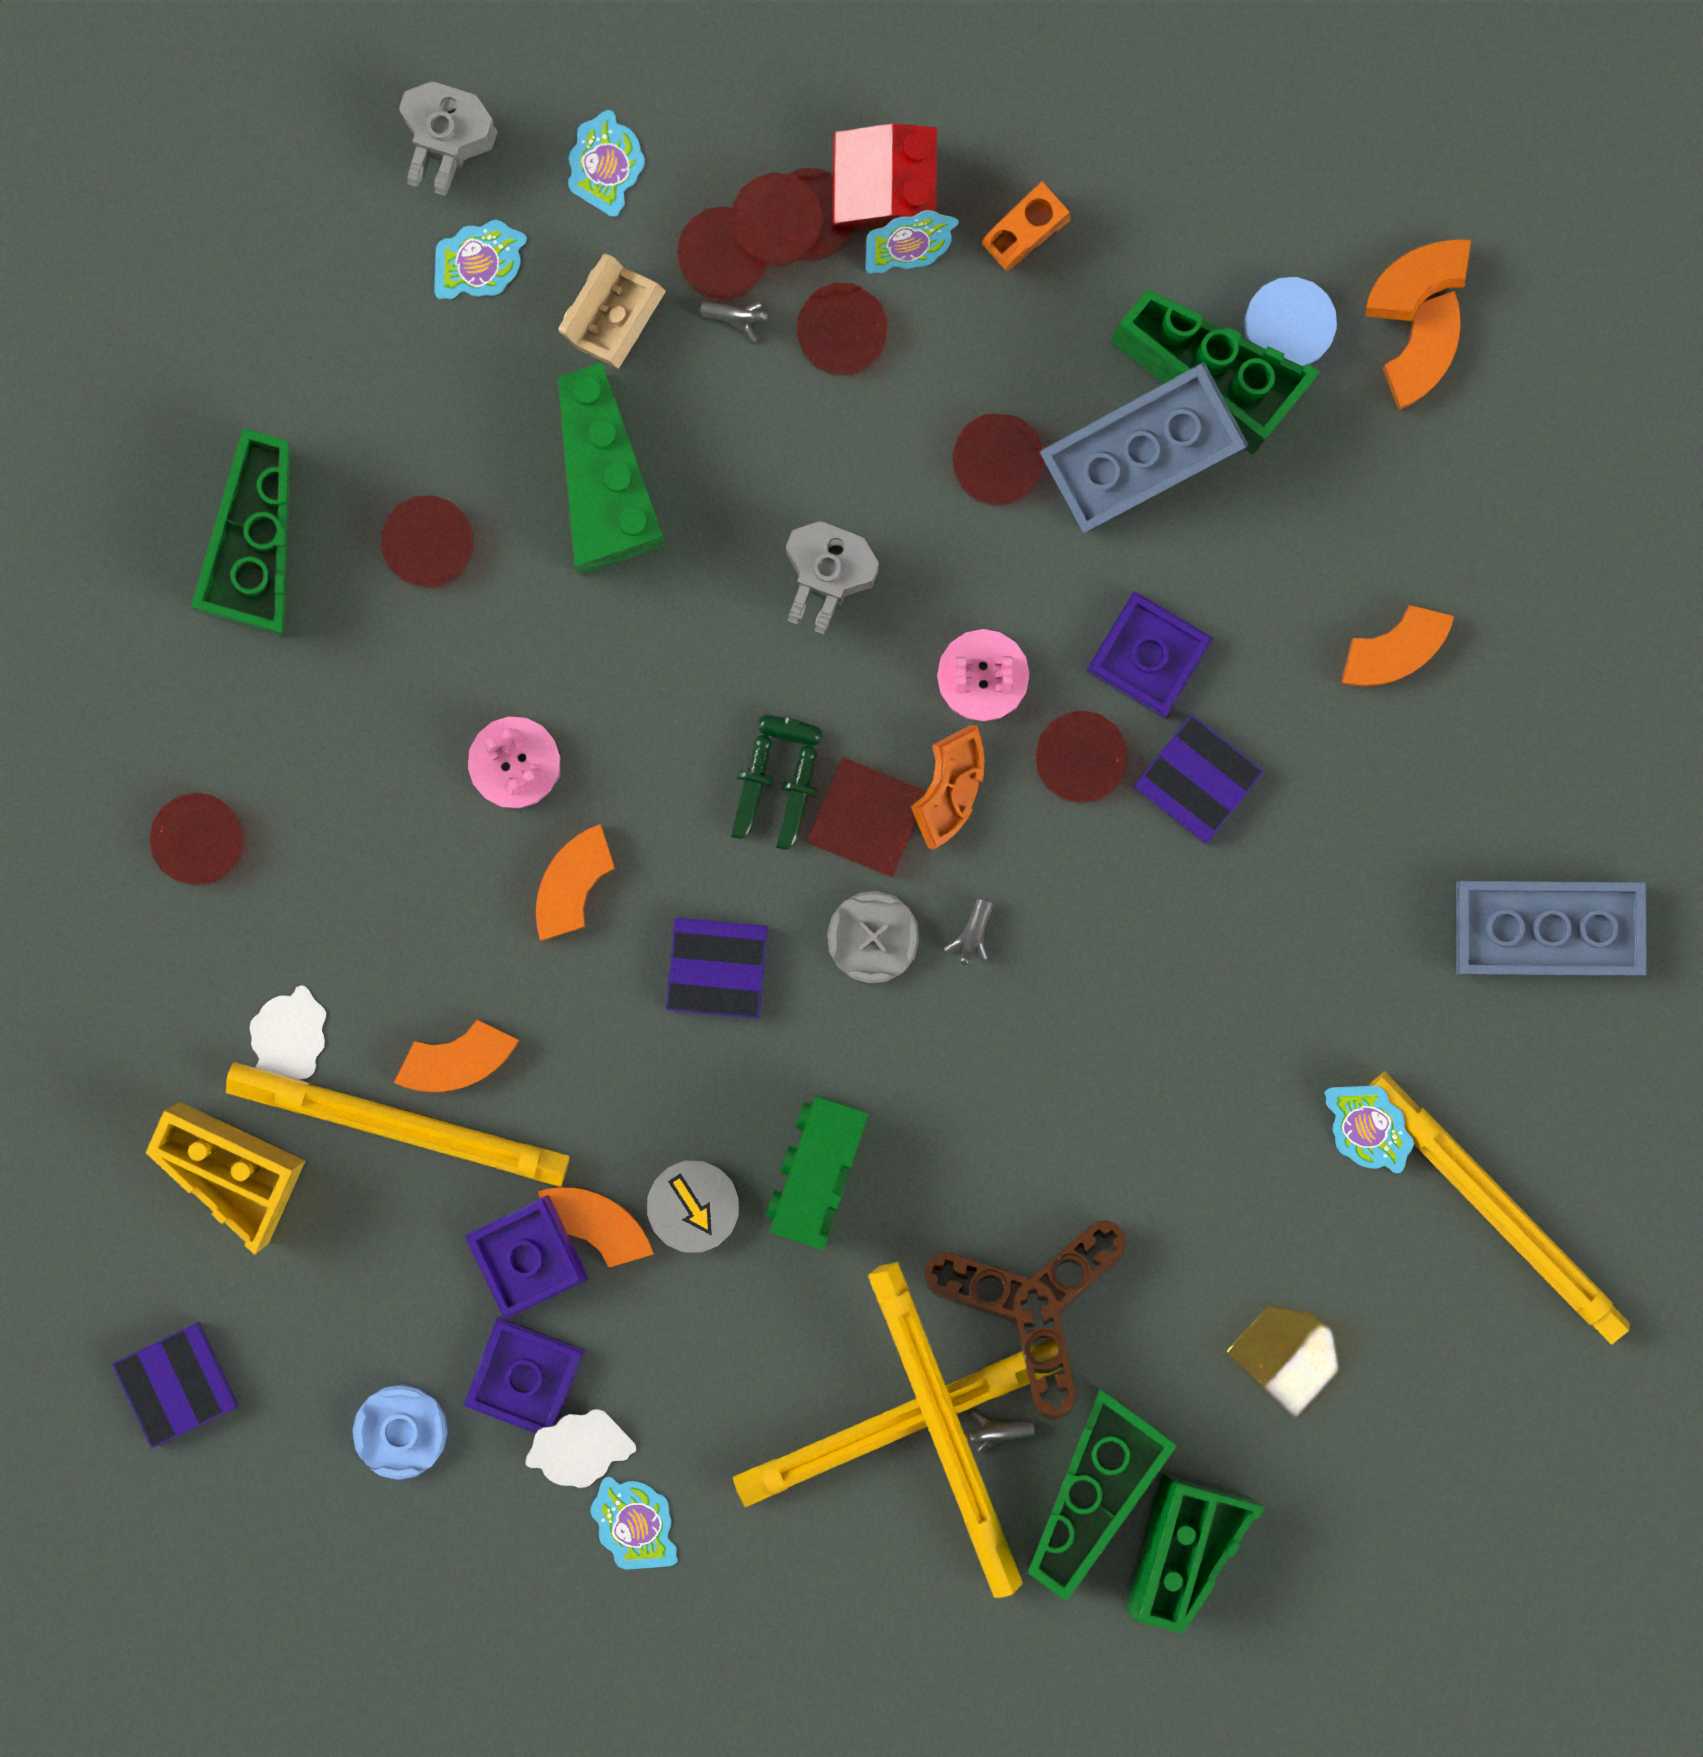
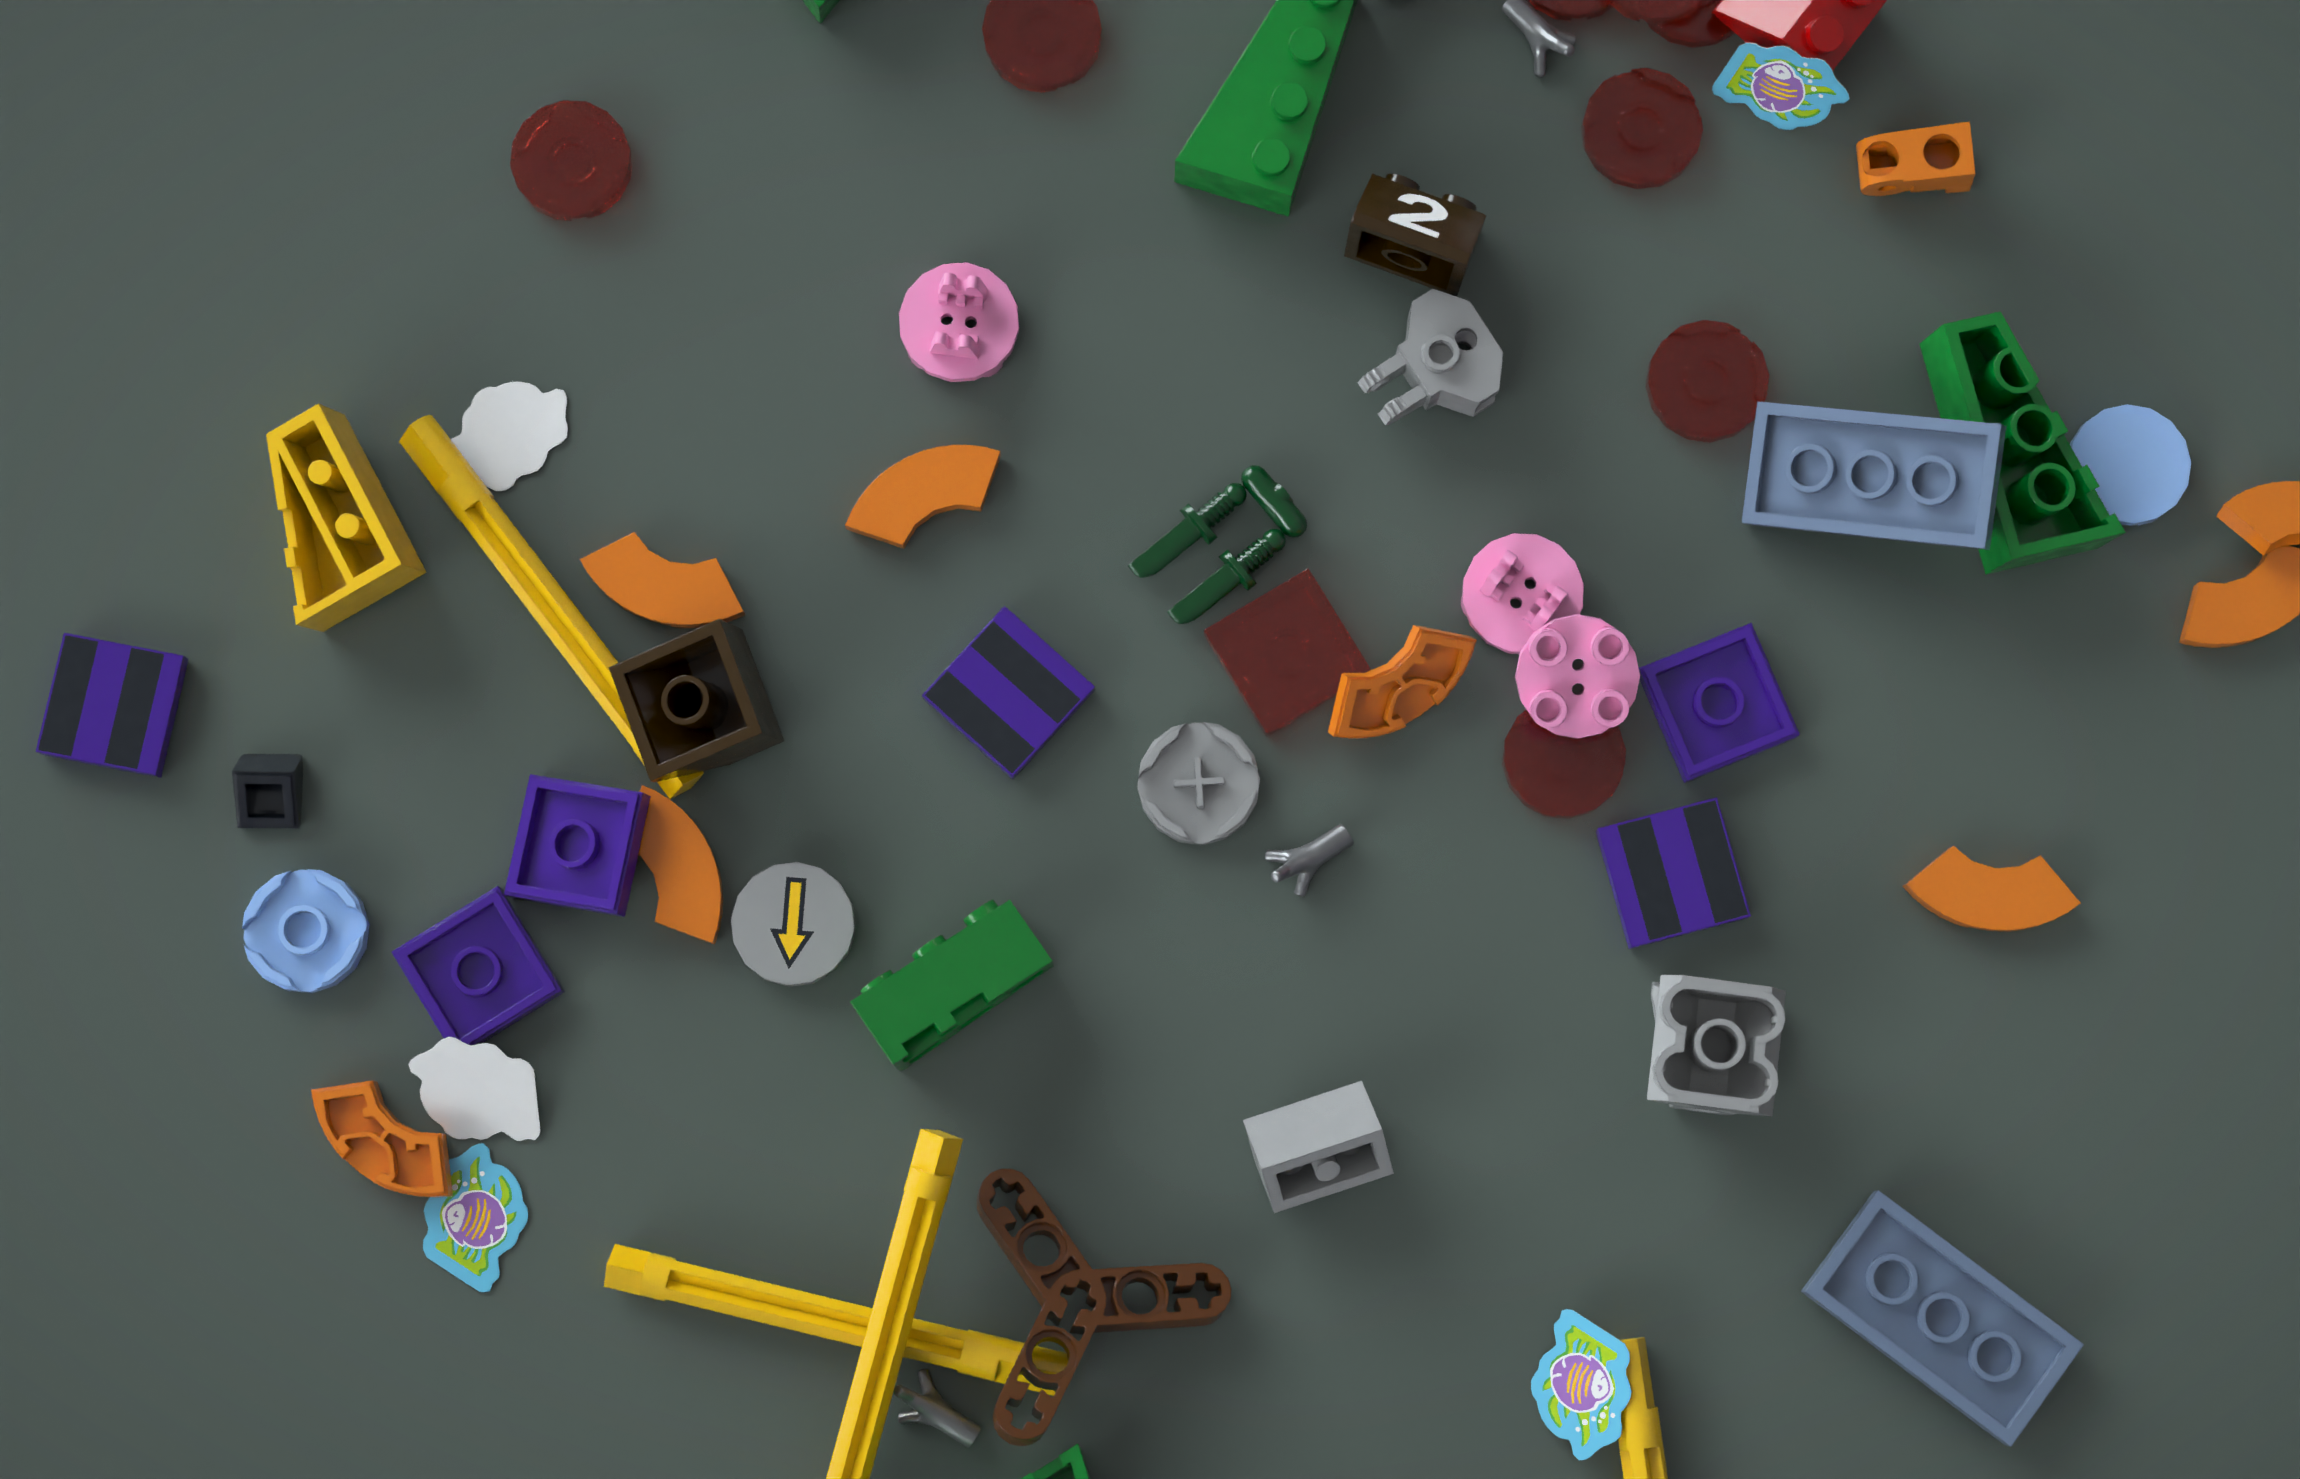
camera: 35 degrees right, 5 degrees down
(311, 1364) = (268, 790): none -> black slope
(534, 1118) = (696, 702): none -> dark brown slope
(545, 1525) = (380, 1145): none -> orange tile
(754, 499) = (1414, 233): none -> dark brown slope
(1071, 689) = (1607, 676): none -> bright pink plate
(1107, 1104) = (1318, 1146): none -> light grey brick
(1301, 868) = (1715, 1045): none -> light grey piece

